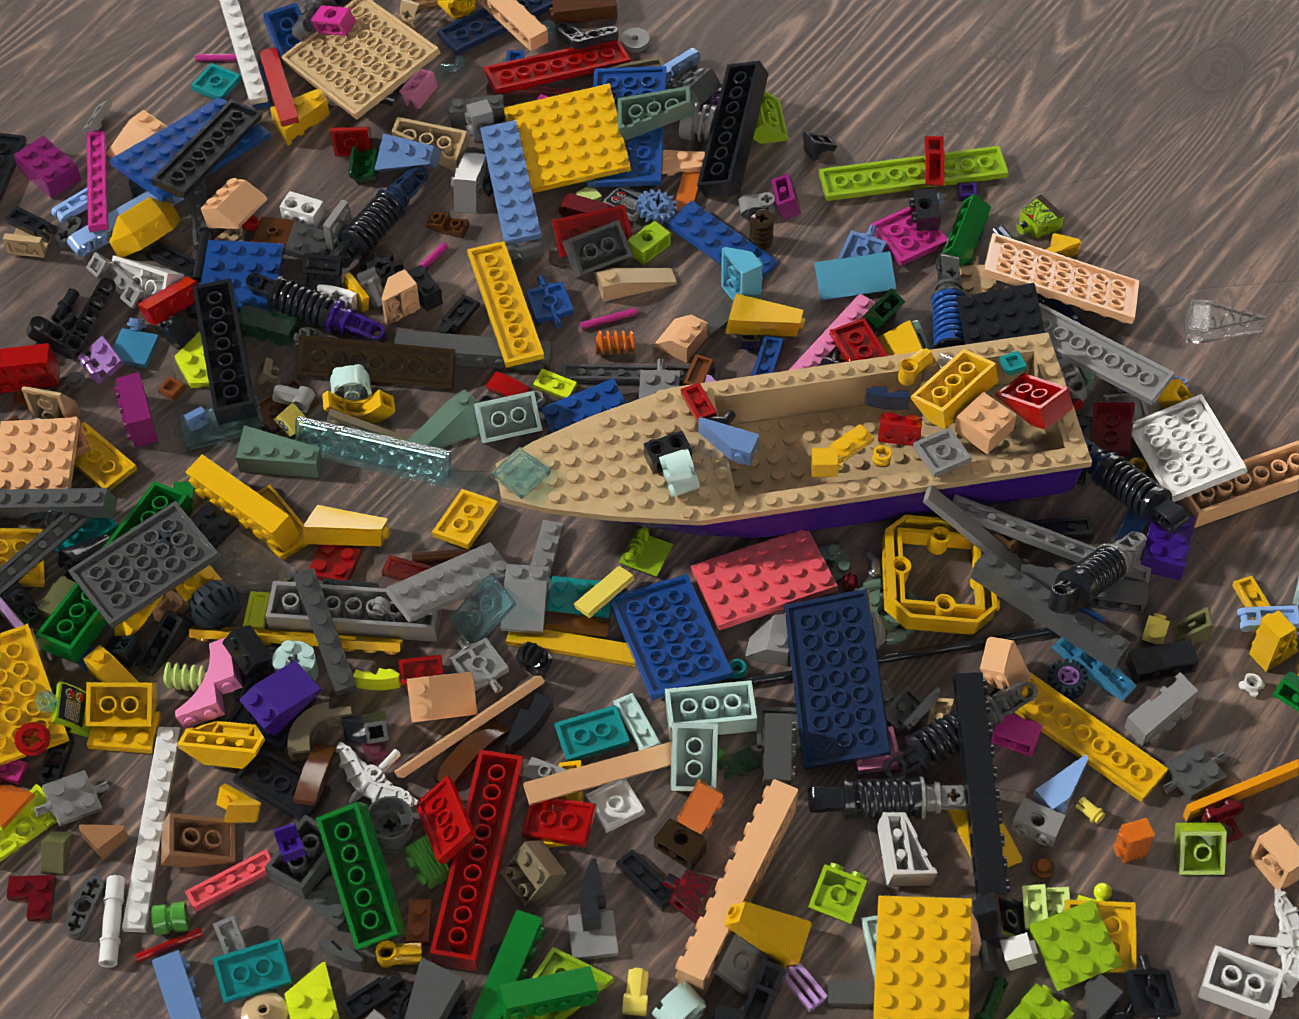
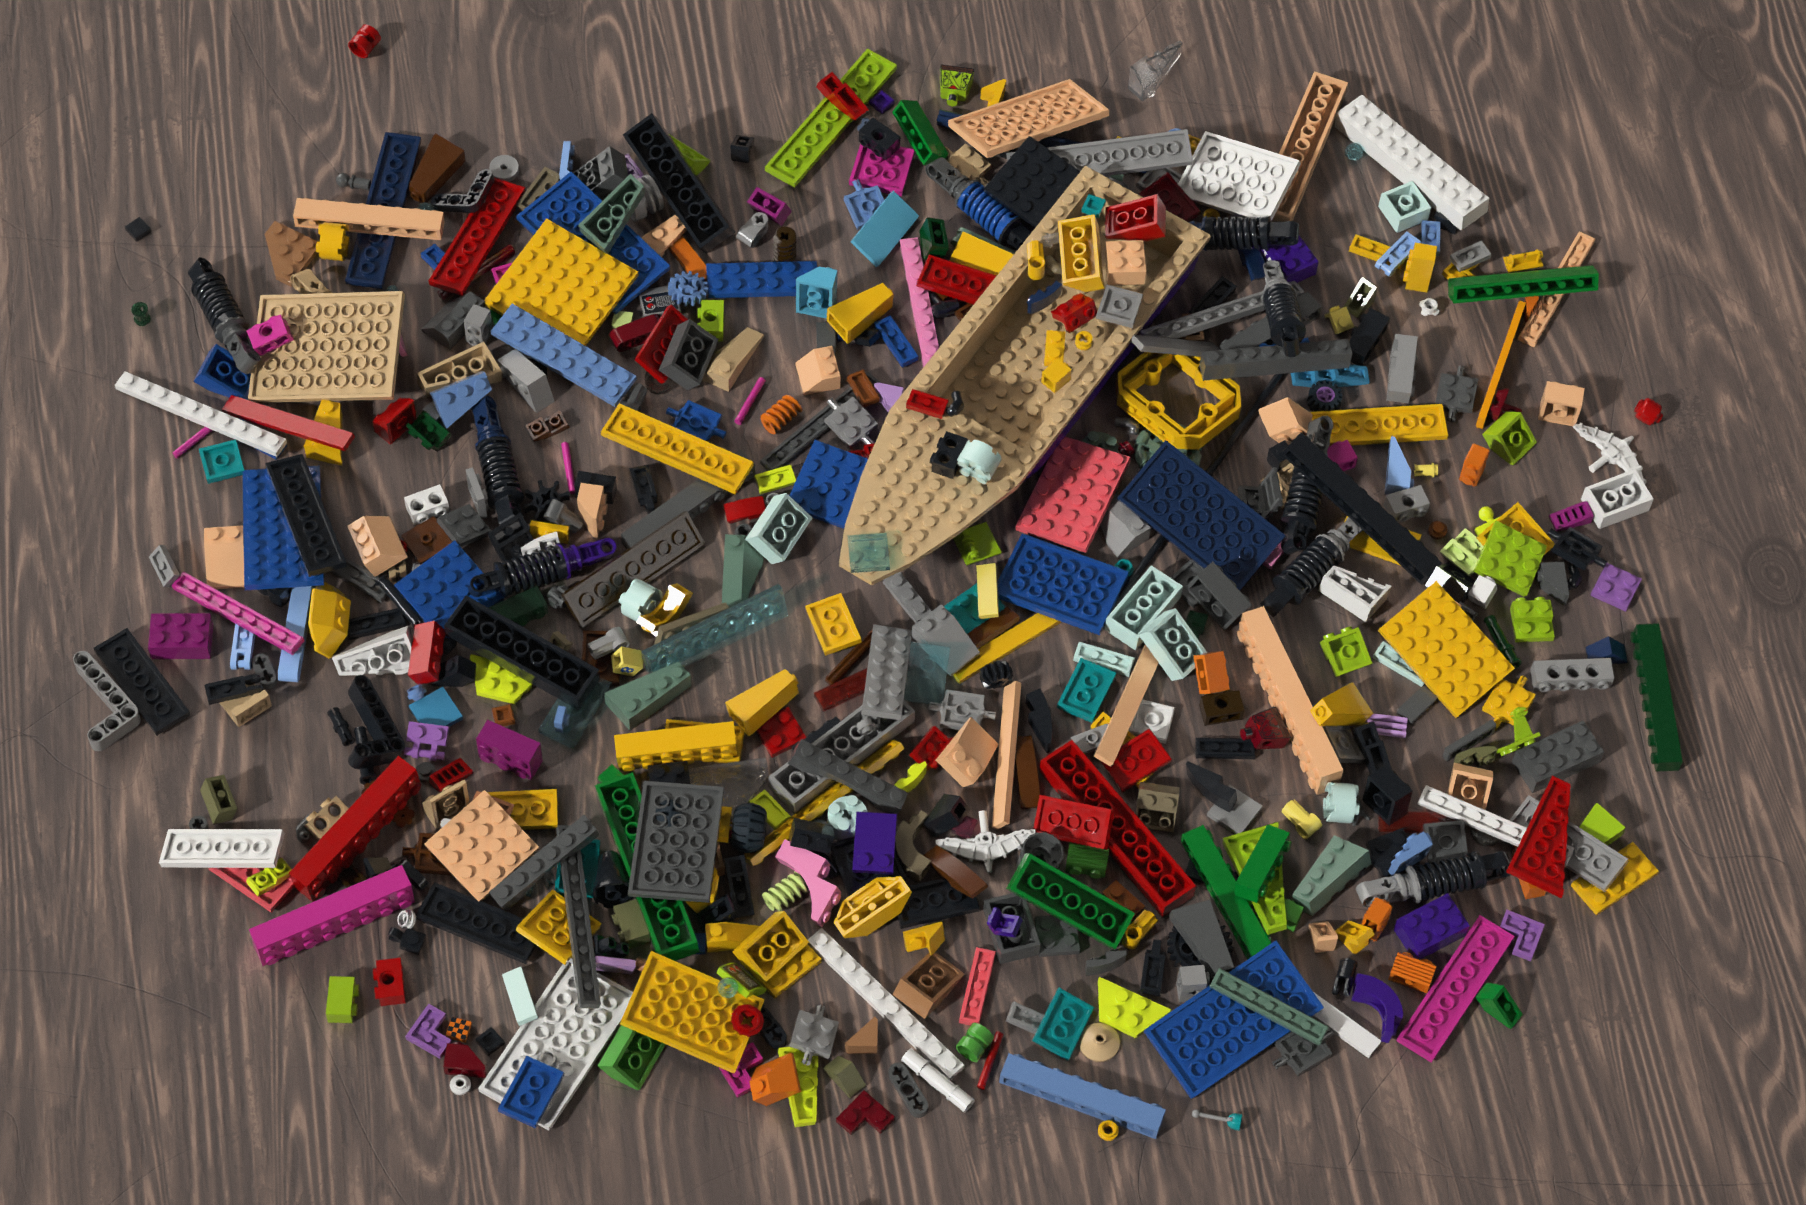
camera: 50 degrees left, 5 degrees up
(75, 392) = (434, 778): none -> red slope
(125, 285) = (346, 672): light grey slope -> none
(731, 441) = (982, 412): medium blue slope -> none
(1192, 959) = (1578, 509): none -> magenta slope

